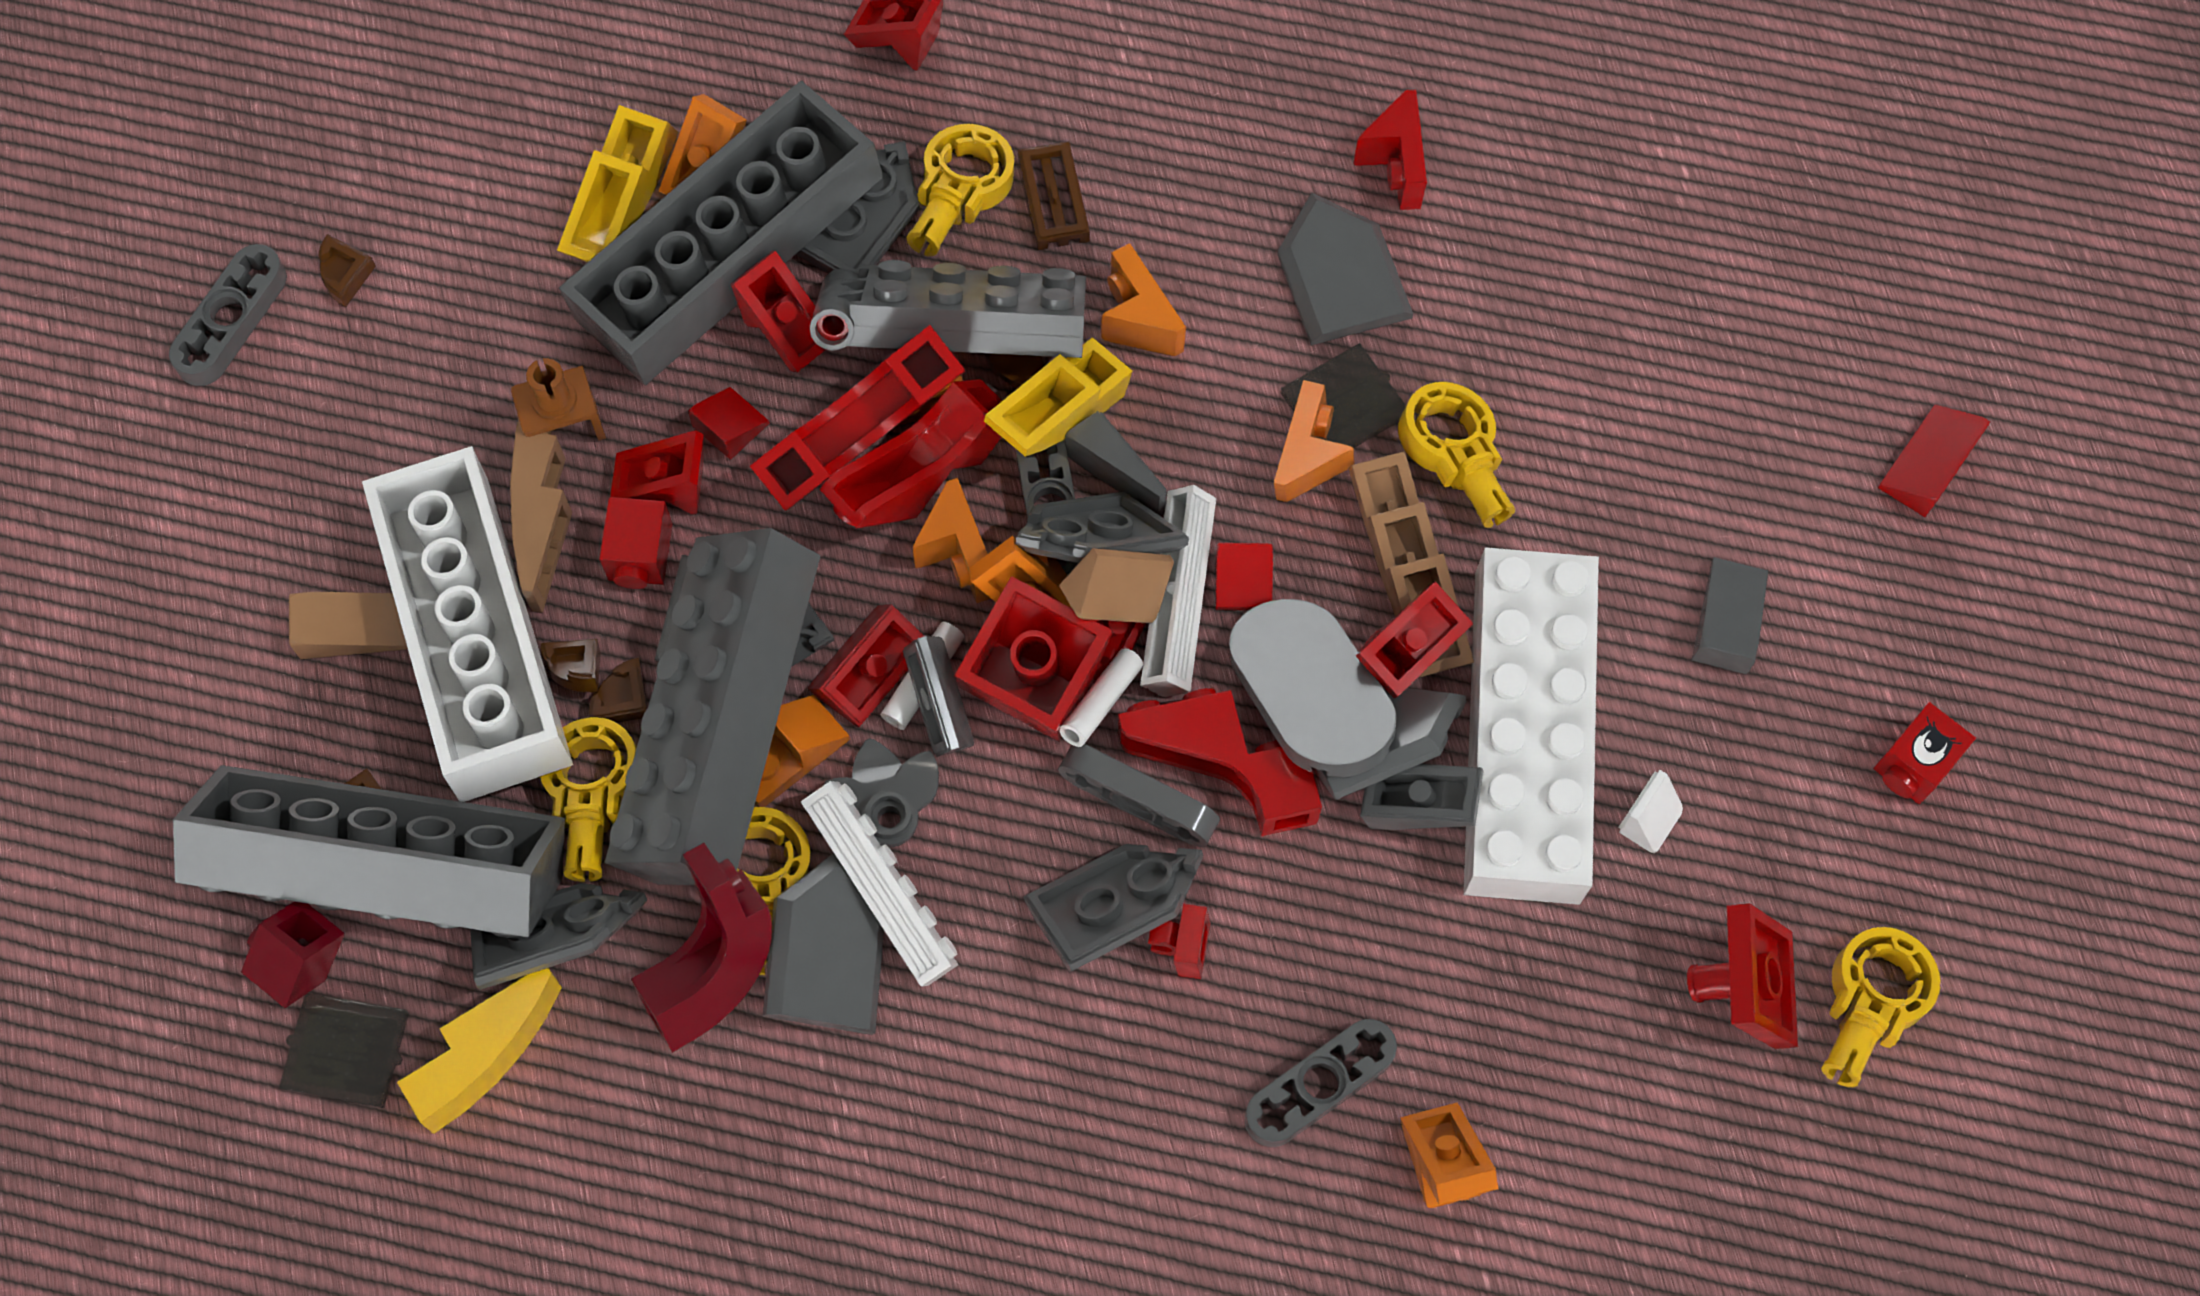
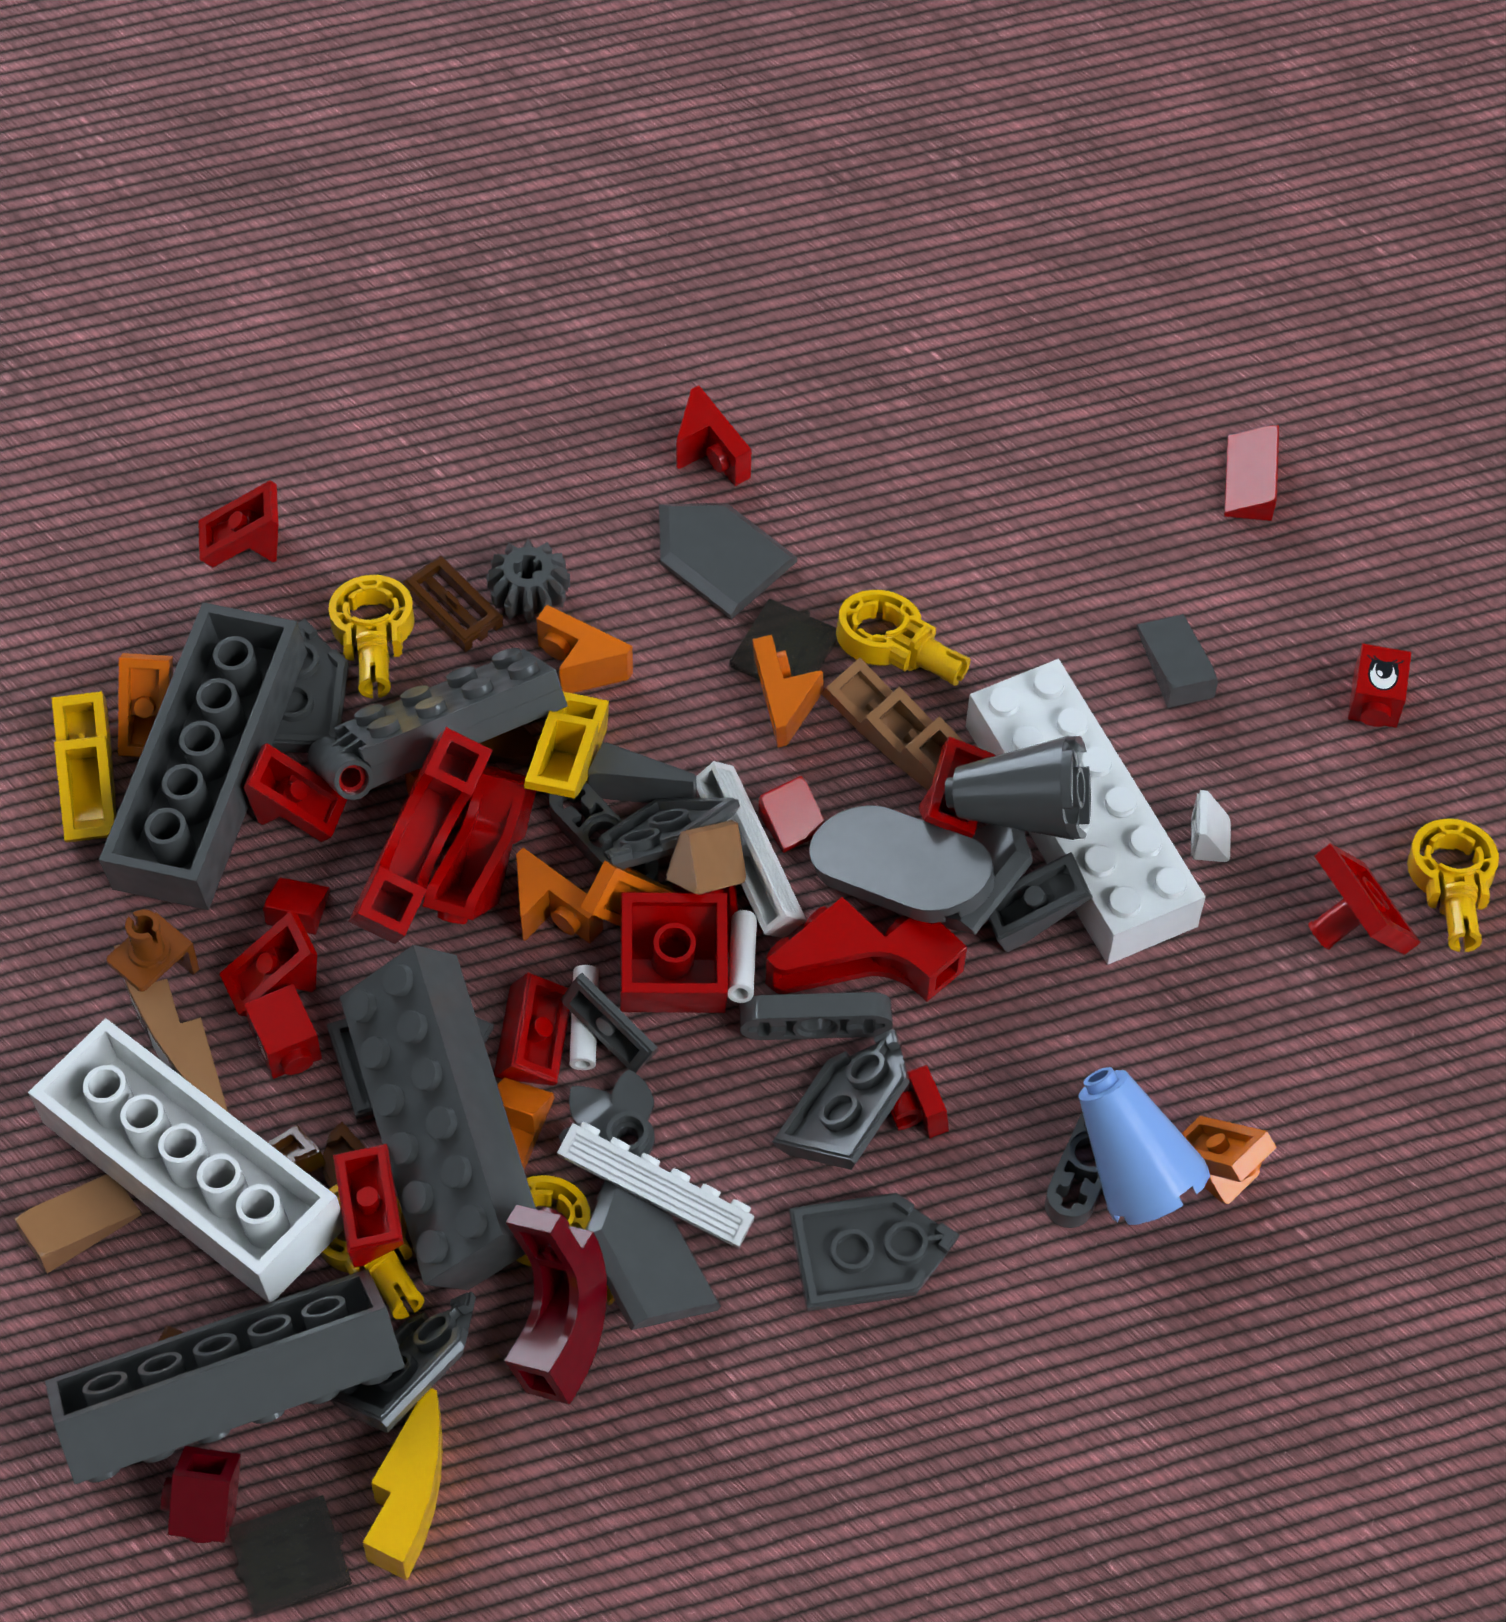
camera: 30 degrees left, 10 degrees down
(594, 756) = (368, 1203): none -> red slope
(1044, 1056) = (865, 1250): none -> dark grey tile
(1134, 208) = (528, 580): none -> dark grey gear
(1355, 1115) = (1137, 1149): none -> light blue cone
(1470, 683) = (1026, 789): none -> dark grey cone

